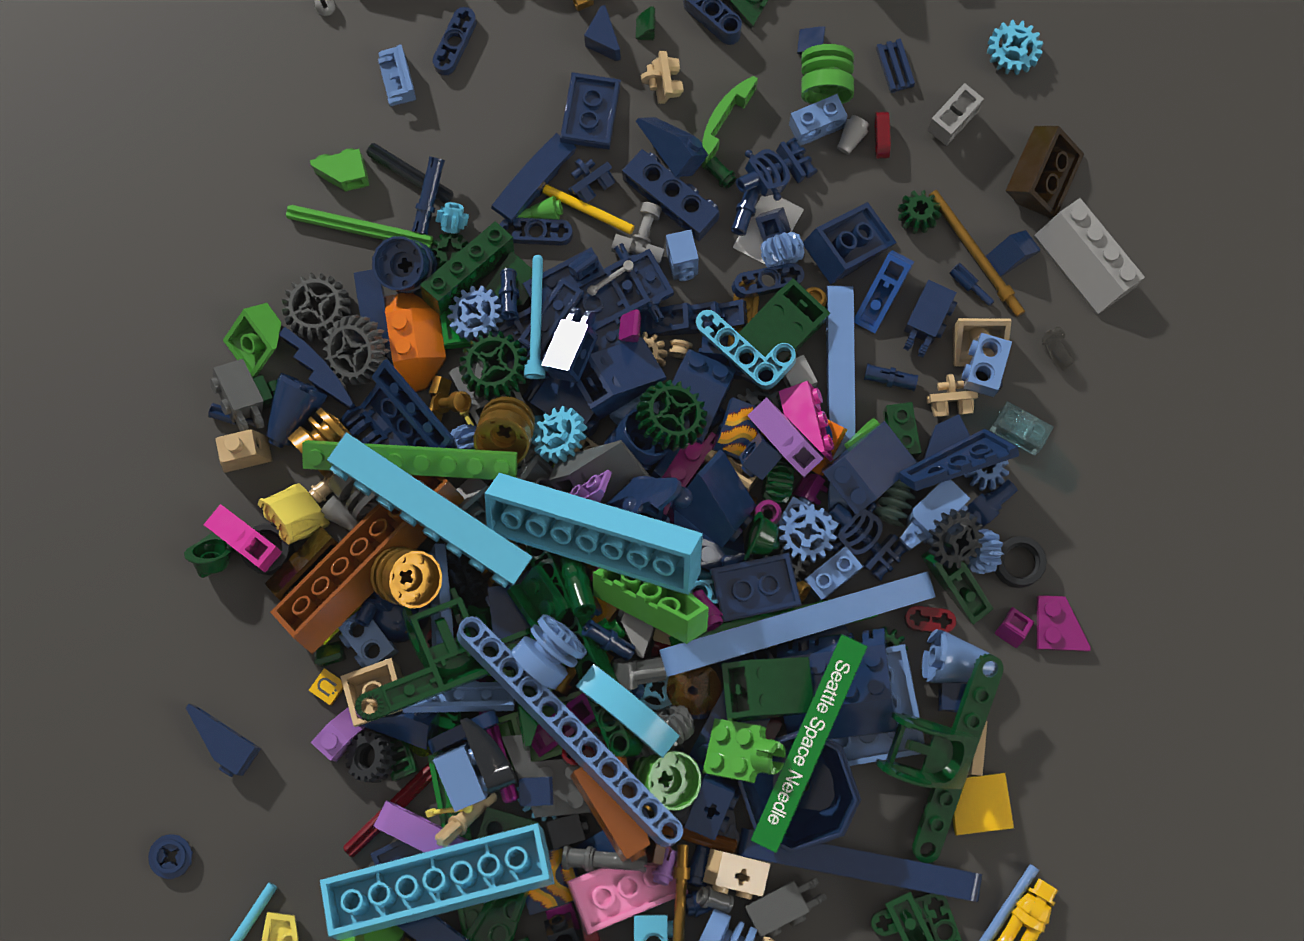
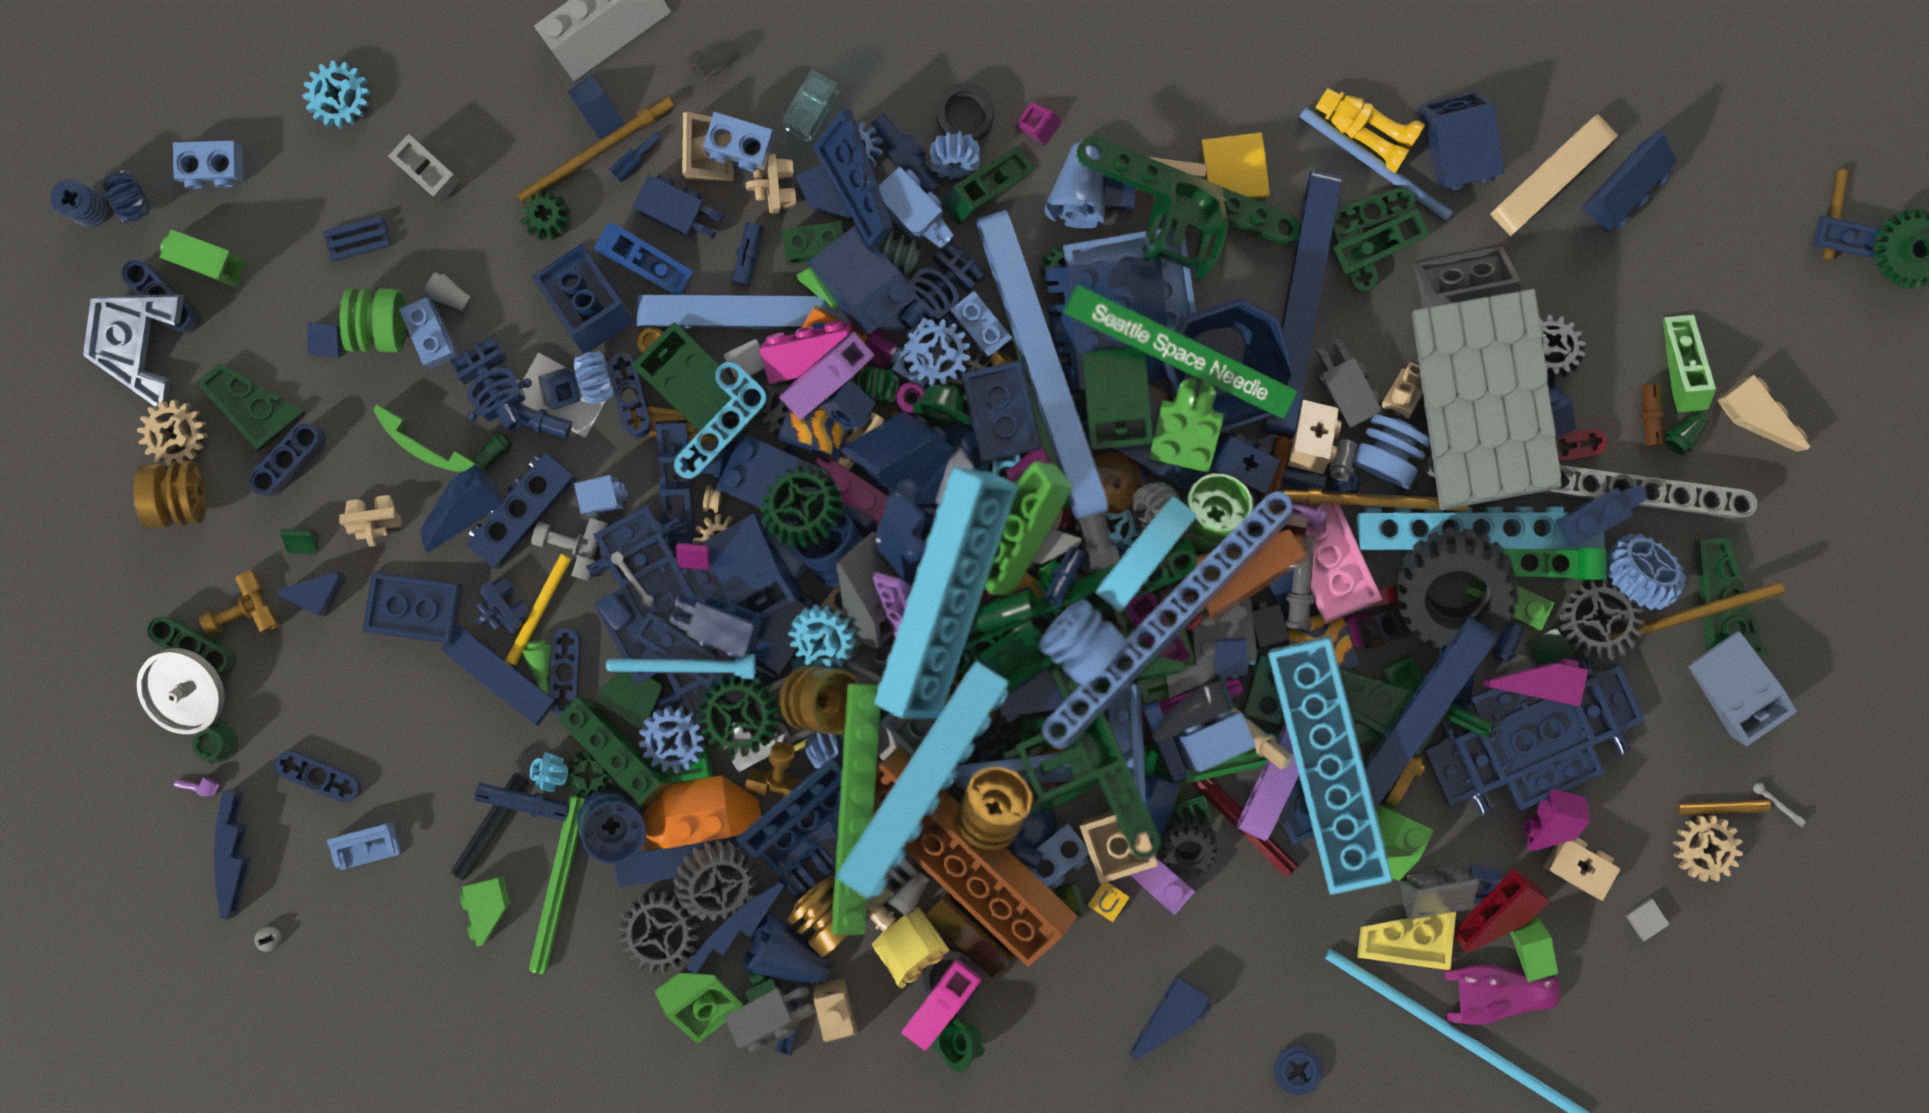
camera: 95 degrees left, 10 degrees up
(432, 812) = (1248, 775): light yellow hinge -> none
(508, 294) = (650, 699): dark blue pin -> none
(882, 135) = (447, 256): dark red beam -> none
(930, 613) = (1037, 218): dark red beam -> none
(955, 538) = (946, 184): black gear -> none
(1045, 170) = (495, 65): dark brown slope -> none
(1058, 626) = (1037, 73): magenta wing -> none

